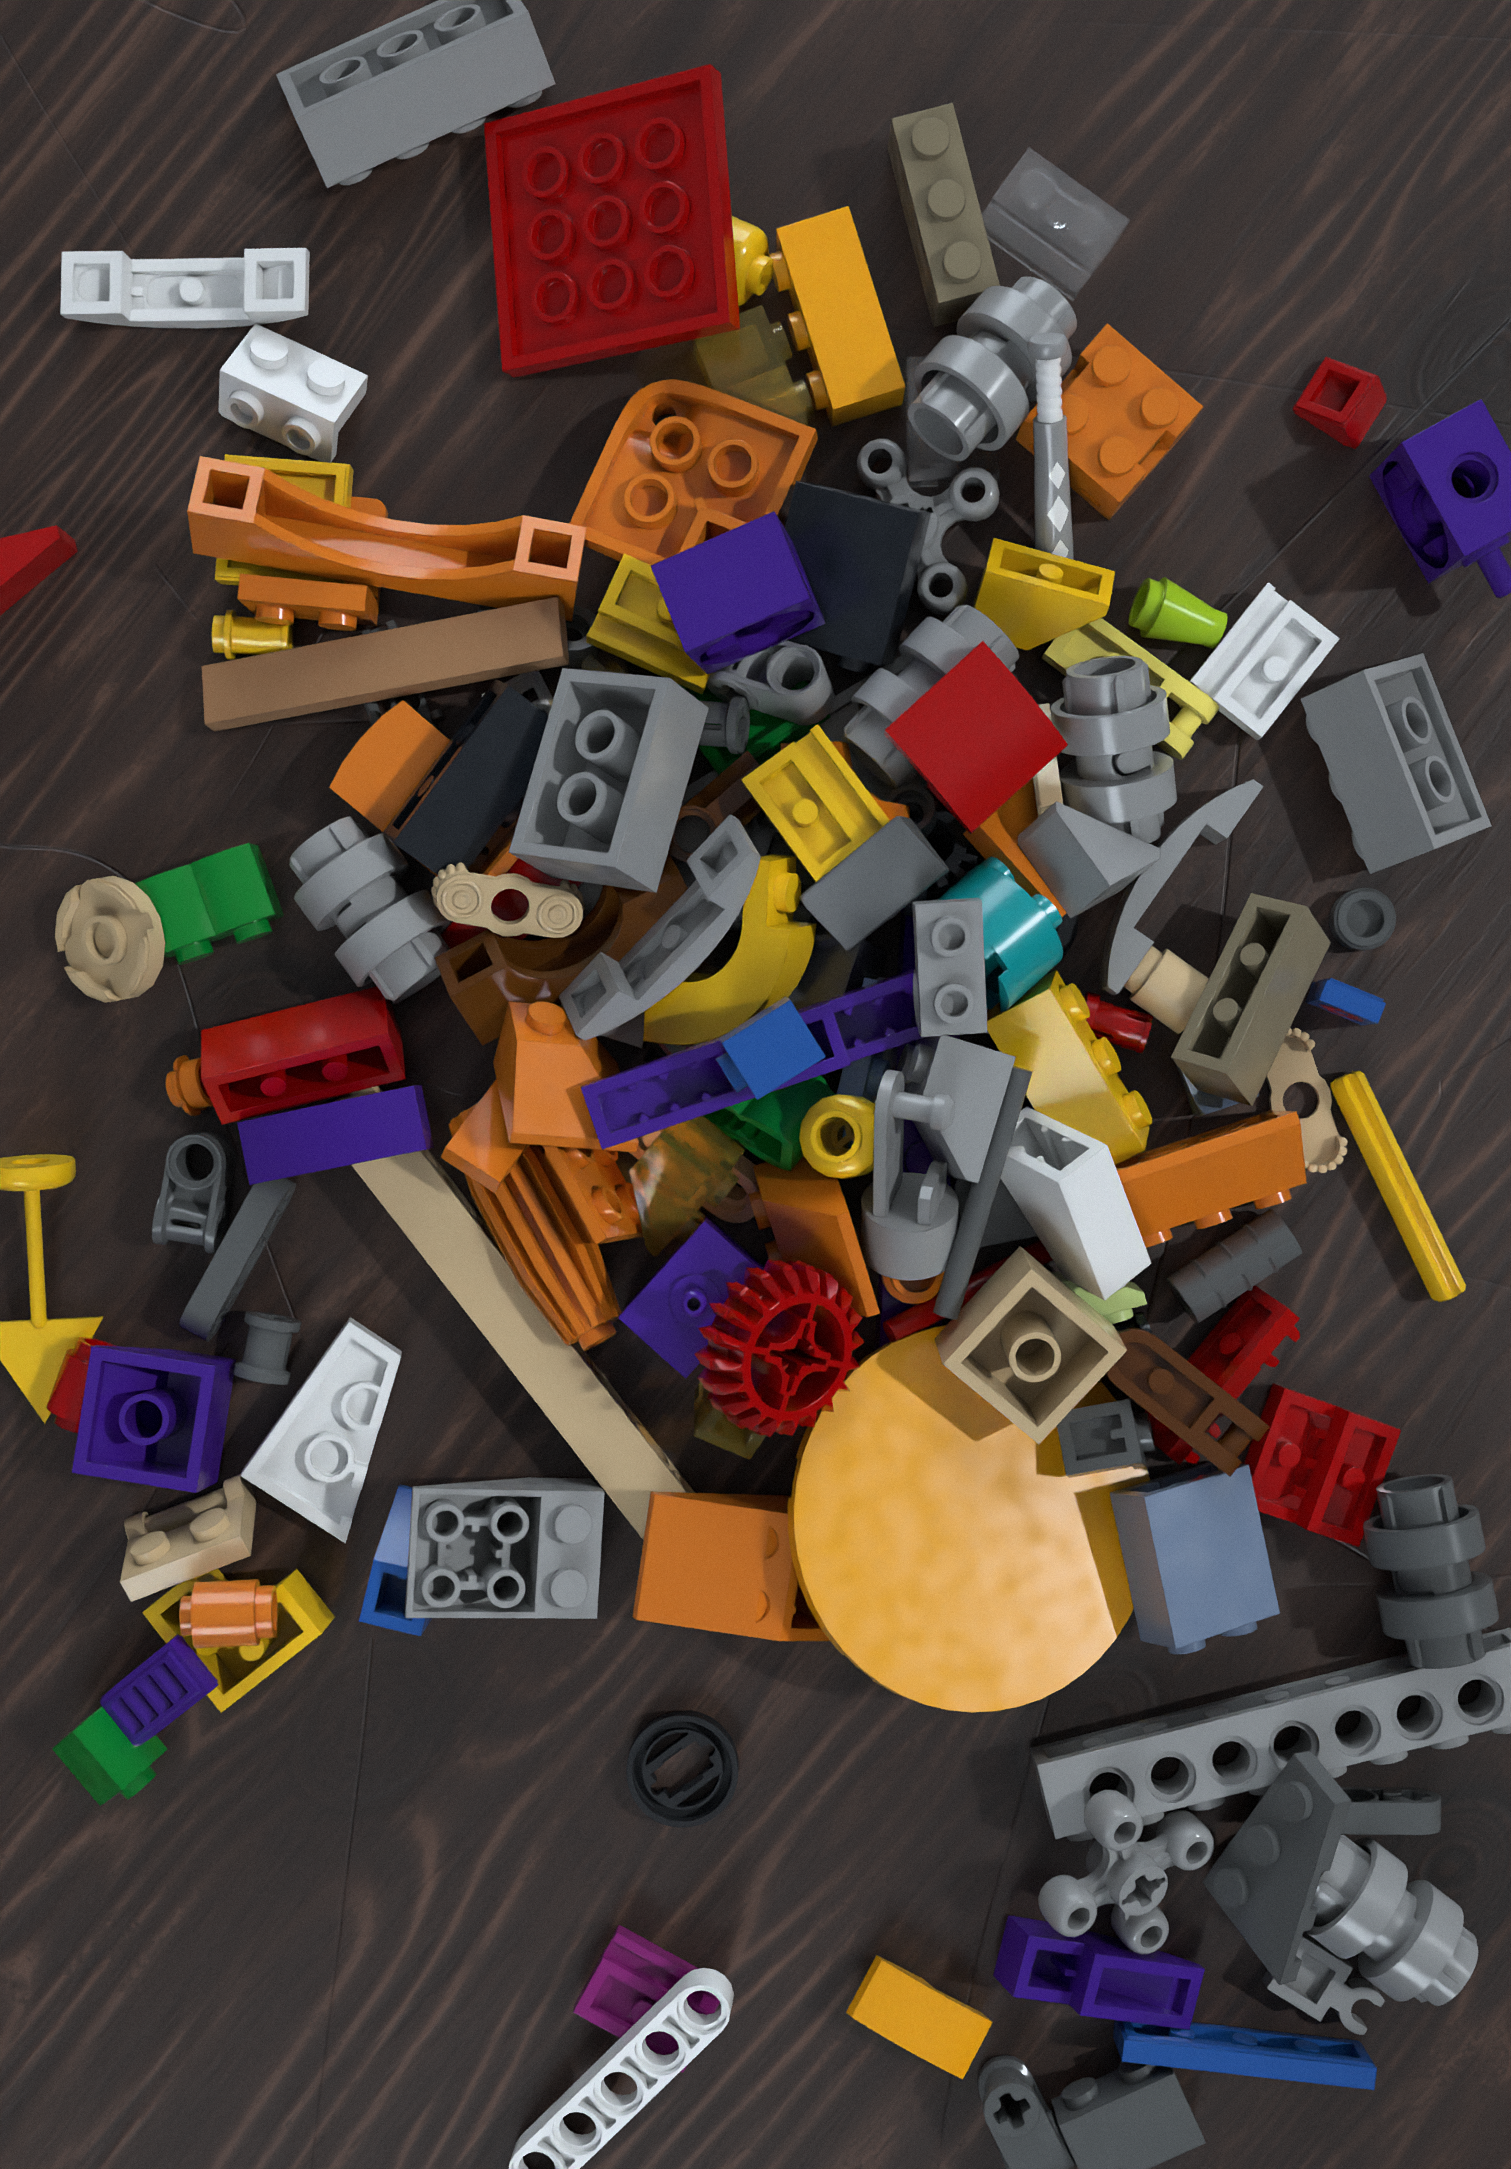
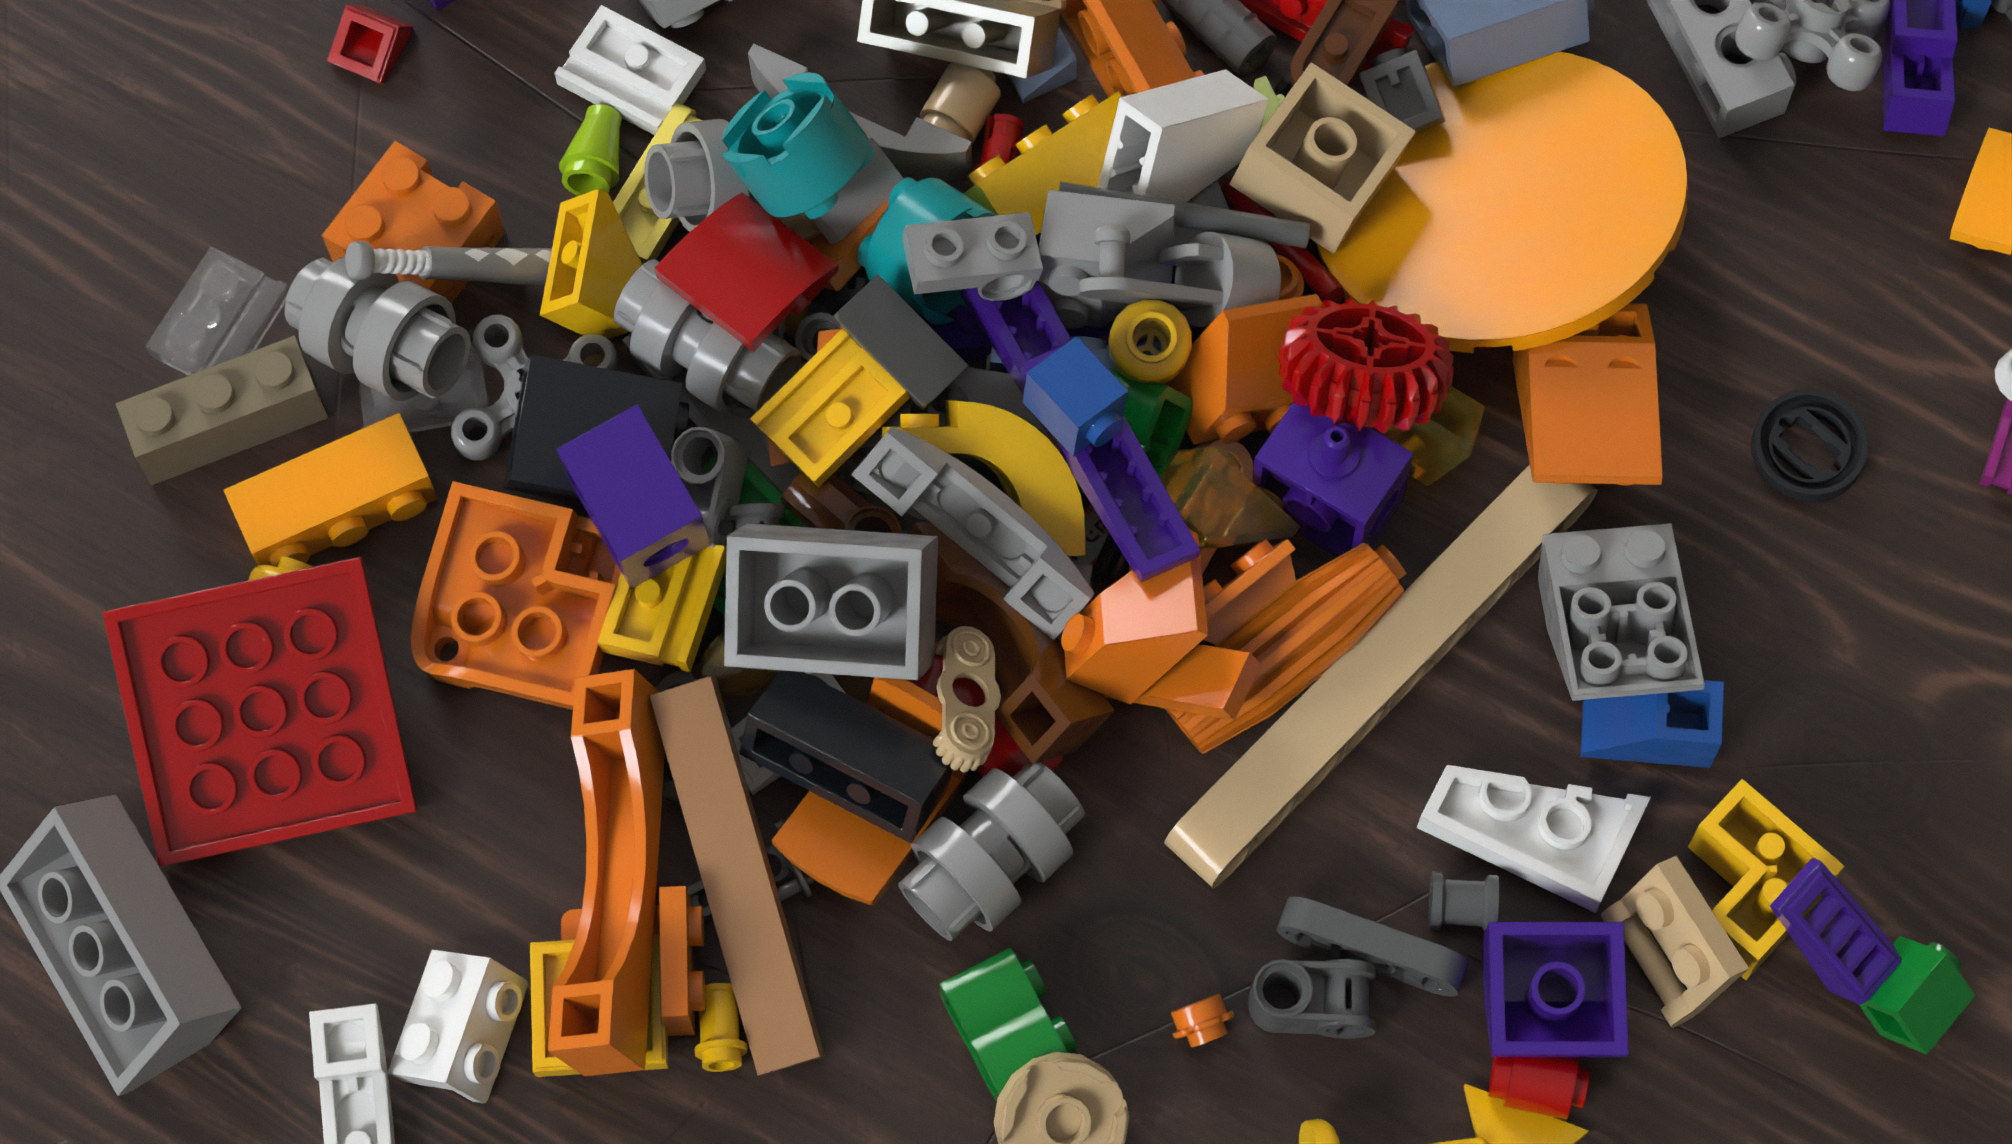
camera: 95 degrees left, 20 degrees down
(229, 1613) = (1737, 857): orange brick -> none
(301, 1055) = (1152, 900): red brick -> none
(335, 1134) = (1230, 837): dark purple slope -> none
(753, 366) = (396, 561): clear yellow slope -> none
(1099, 803) = (796, 147): none -> teal brick

